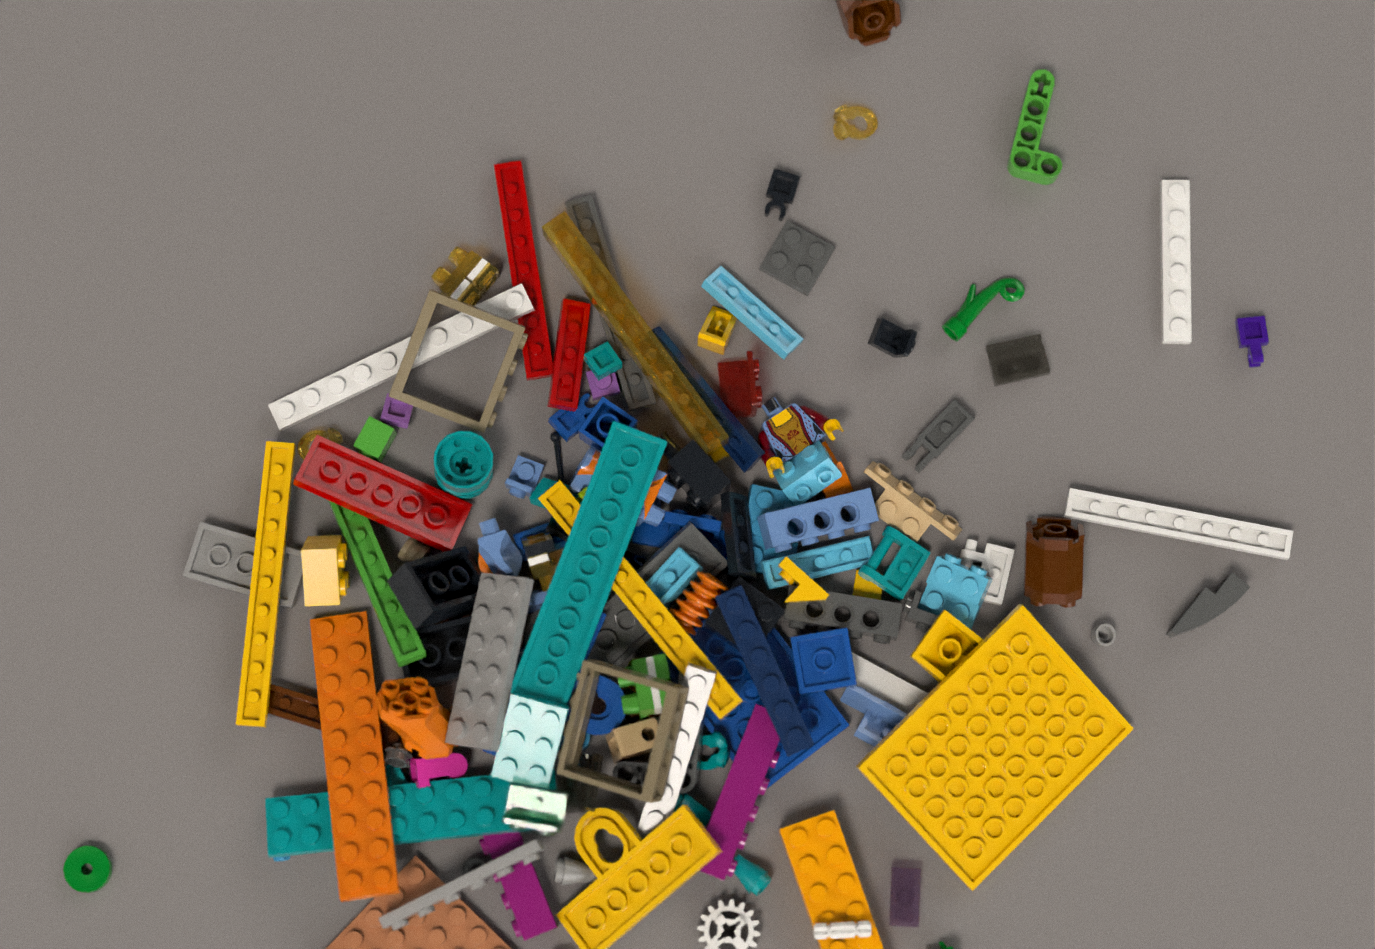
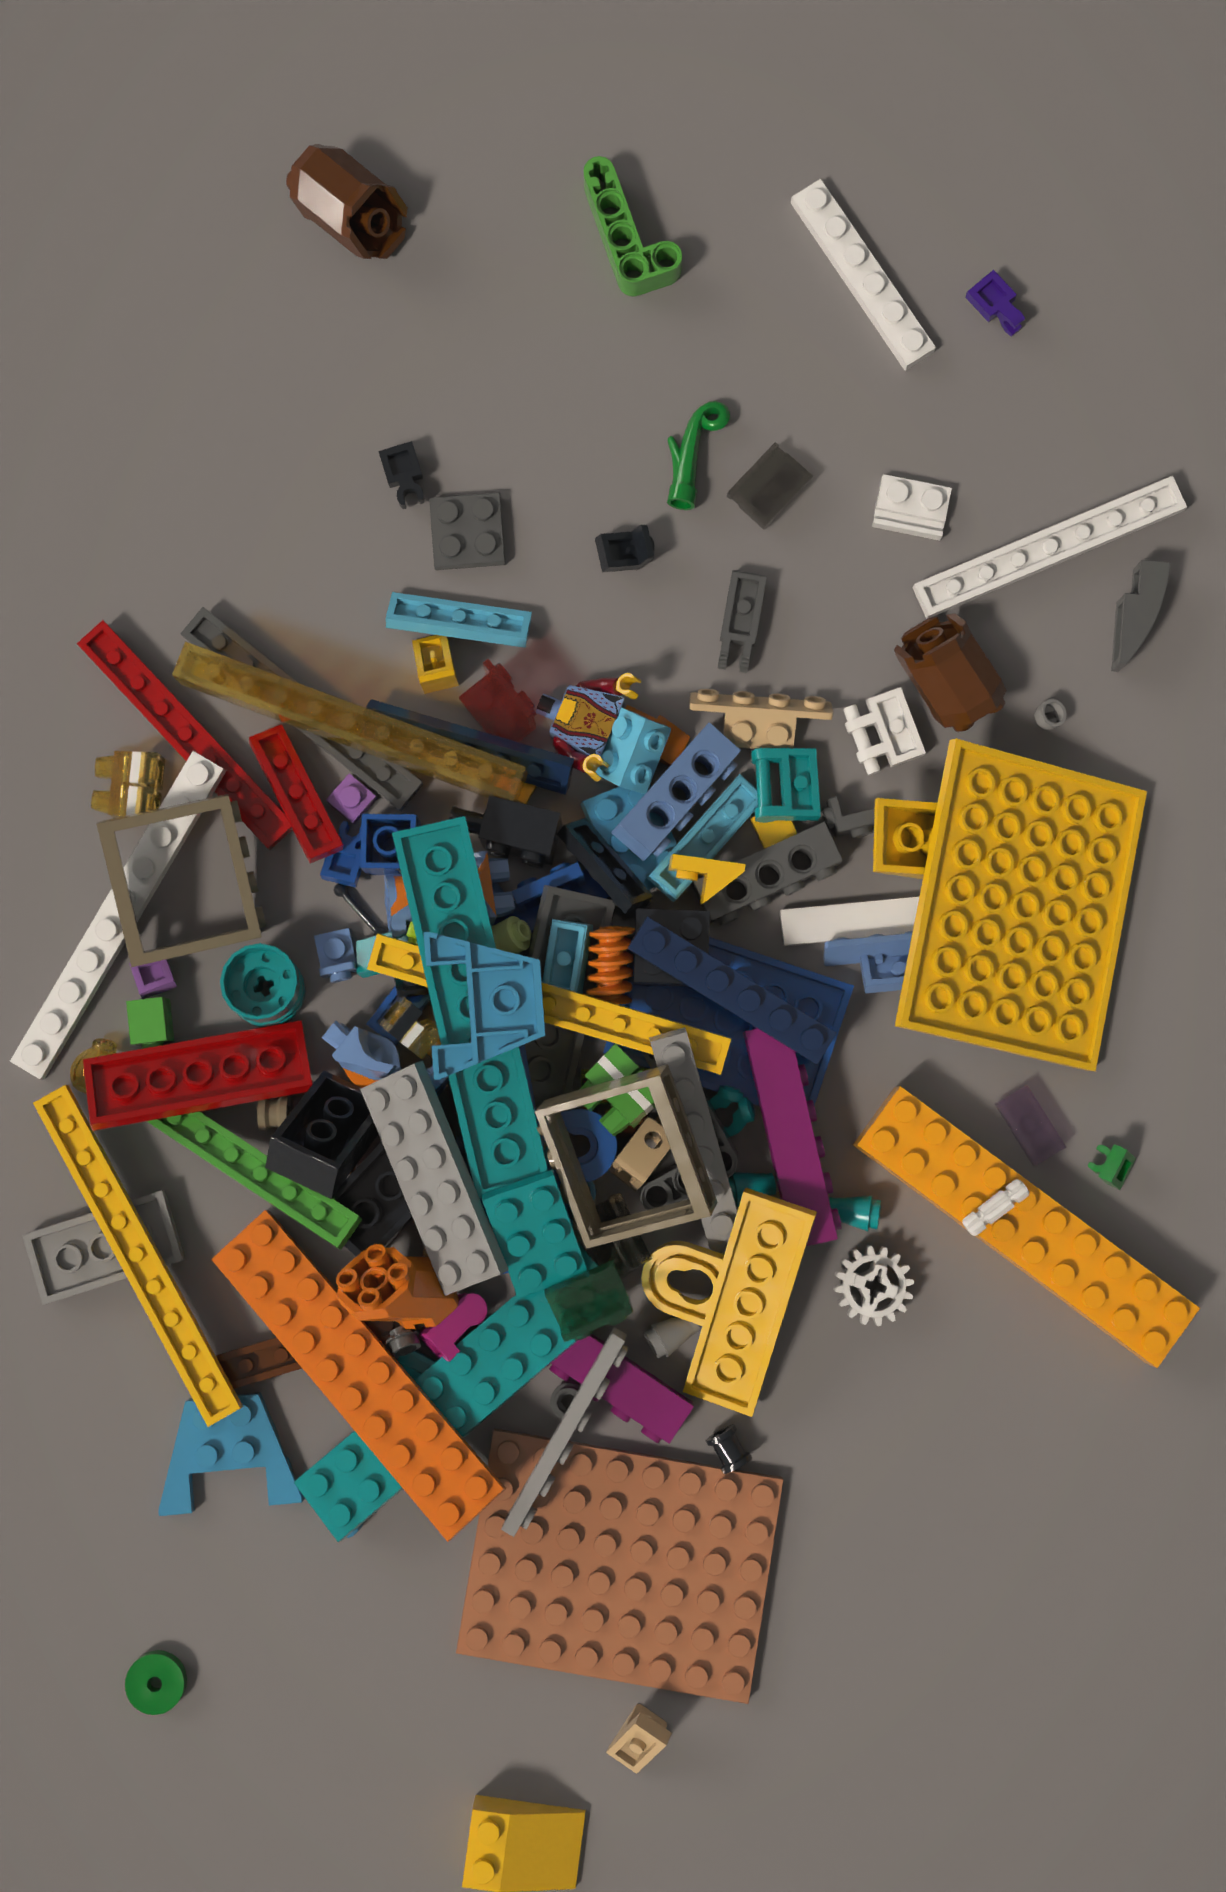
camera: 30 degrees left, 5 degrees up
(243, 747) = (235, 1442): none -> dark azure wing
(324, 571) = (190, 1199): yellow brick -> none
(603, 361) = (336, 775): teal plate -> none
(610, 575) = (502, 1001): none -> dark azure wing
(644, 541) = (511, 935): none -> yellowish green brick
(823, 661) = (784, 937): blue plate -> none
(843, 130) = (422, 362): clear yellow piece -> none
(955, 589) = (868, 769): medium azure plate -> none
(1103, 436) = (911, 507): none -> white plate

